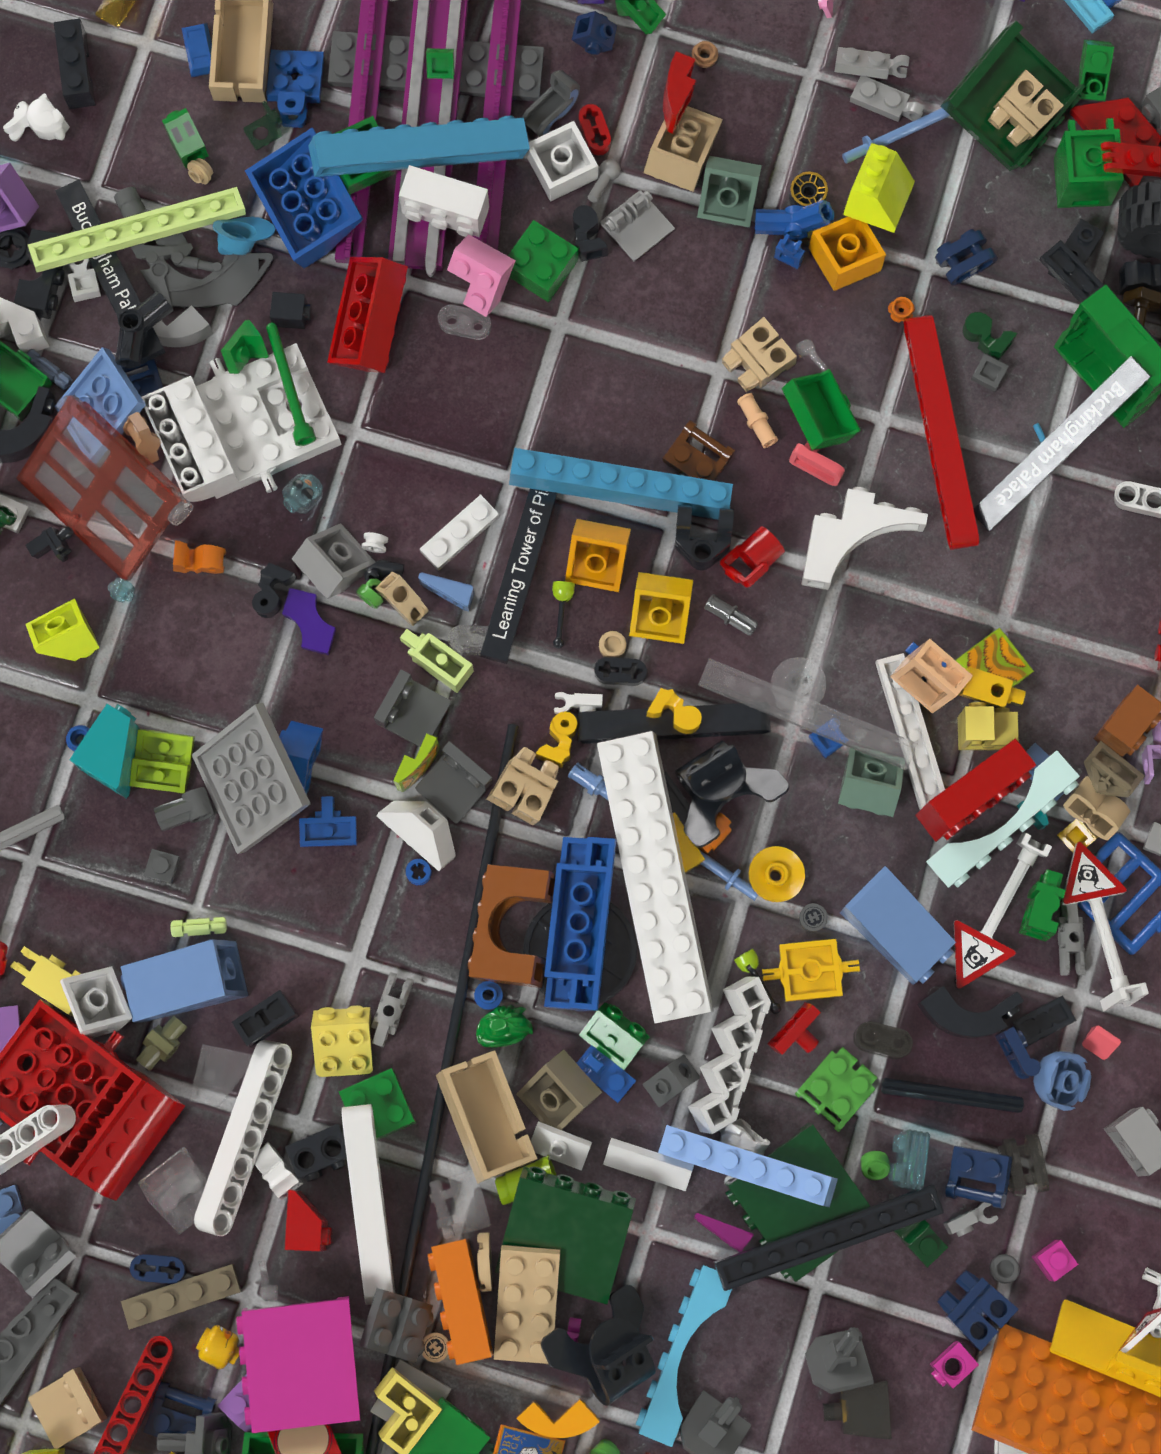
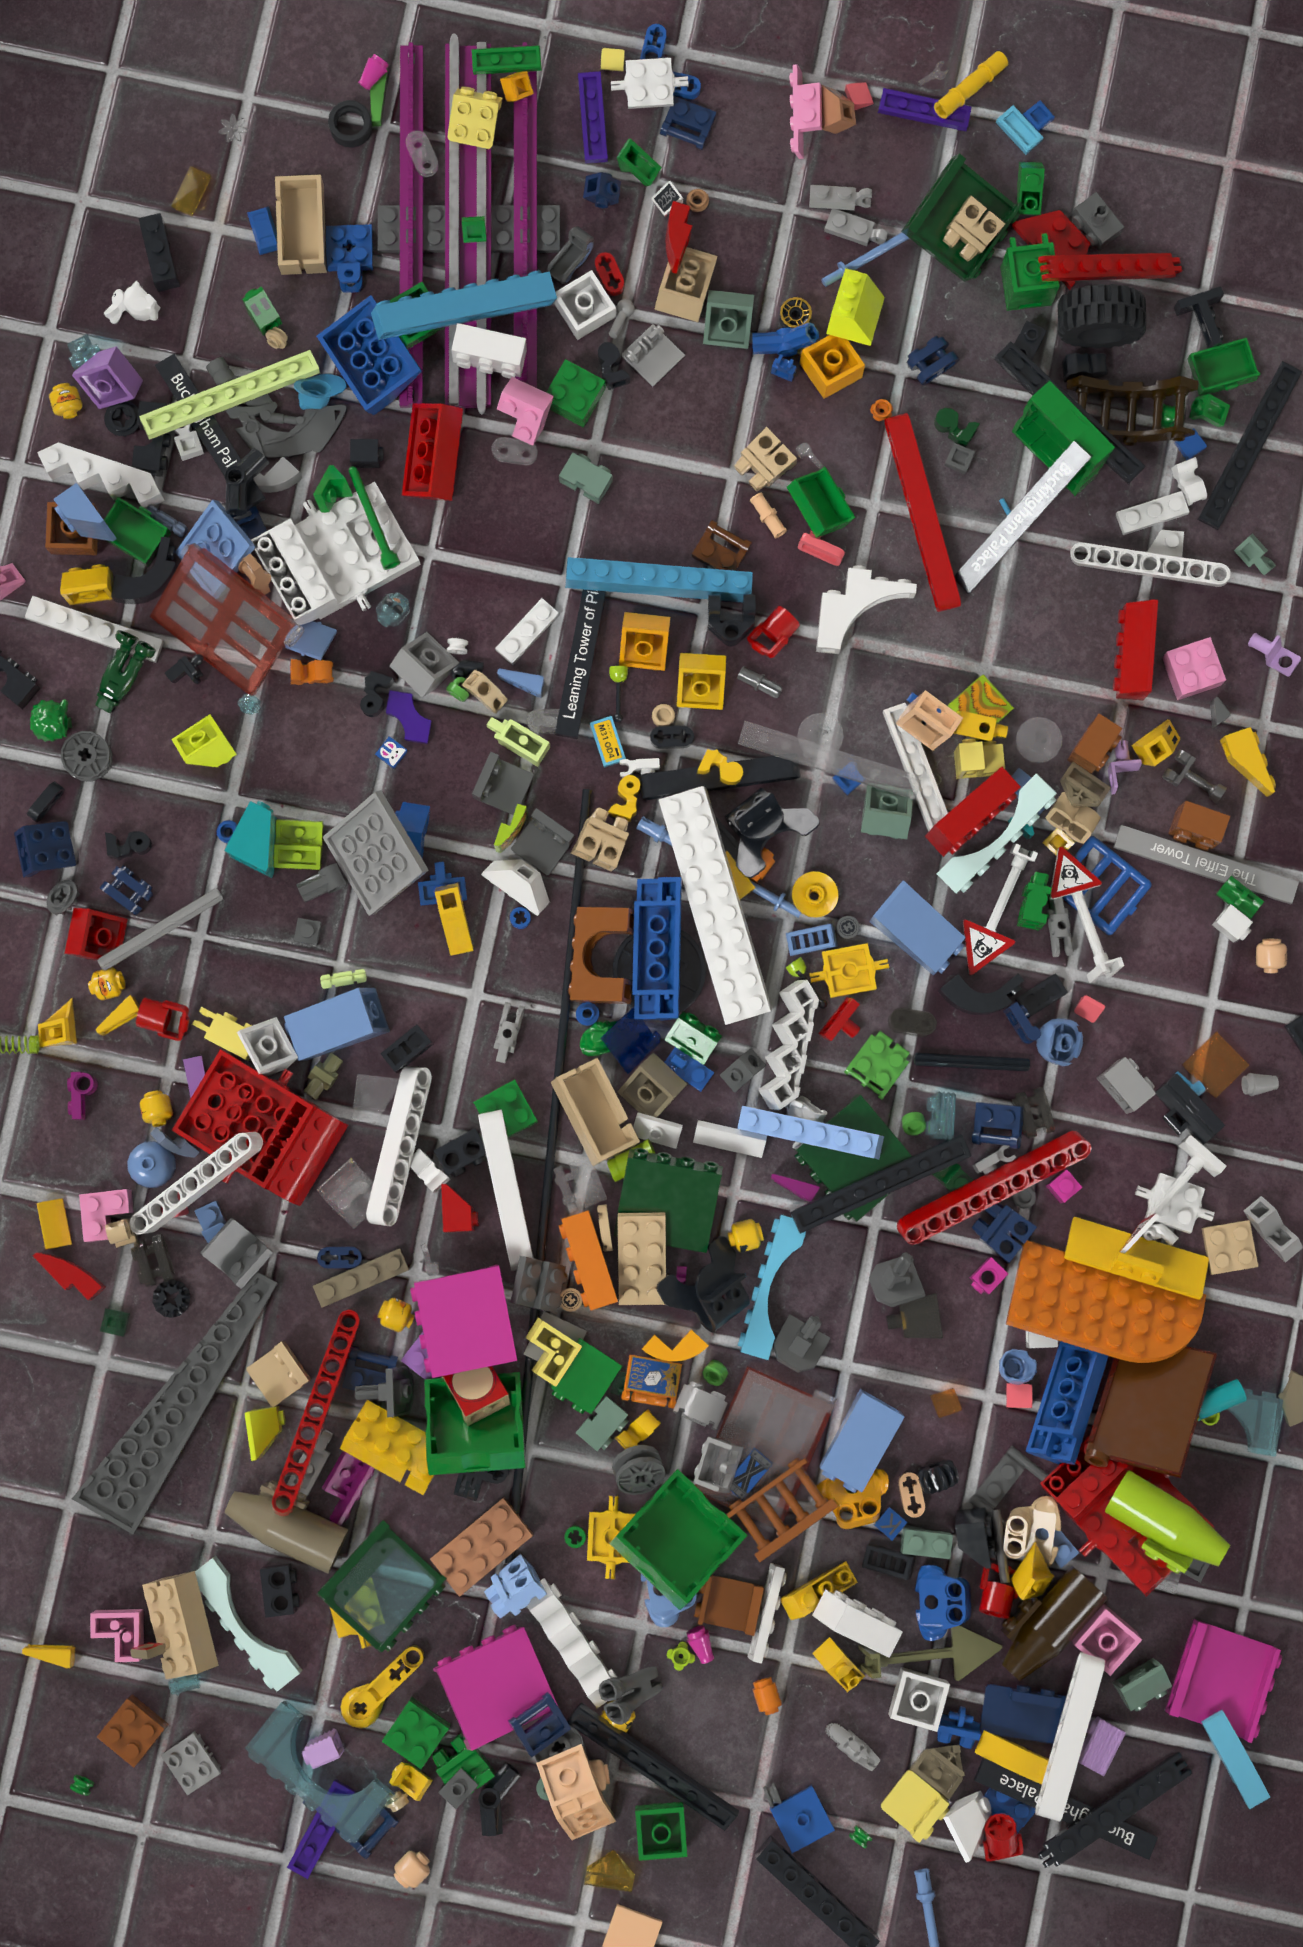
camera: 10 degrees left, 5 degrees up
(205, 521) = (314, 640): none -> medium blue piece
(270, 122) = (333, 289): clear green bracket -> none
(284, 661) = (391, 752): none -> tile
(337, 865) = (453, 918): none -> yellow slope
(342, 1041) = (471, 1061): light yellow bracket -> none
(537, 1033) = (630, 1041): none -> clear blue hinge
(543, 669) = (607, 741): none -> tile
(546, 357) = (583, 474): none -> sand green brick
(657, 1286) = (745, 1235): none -> yellow head
(667, 47) = (665, 196): none -> slope
(791, 917) = (819, 929): none -> medium blue slope
(985, 1248) = (988, 1196): none -> red beam
(1061, 711) = (1039, 739): none -> clear piece

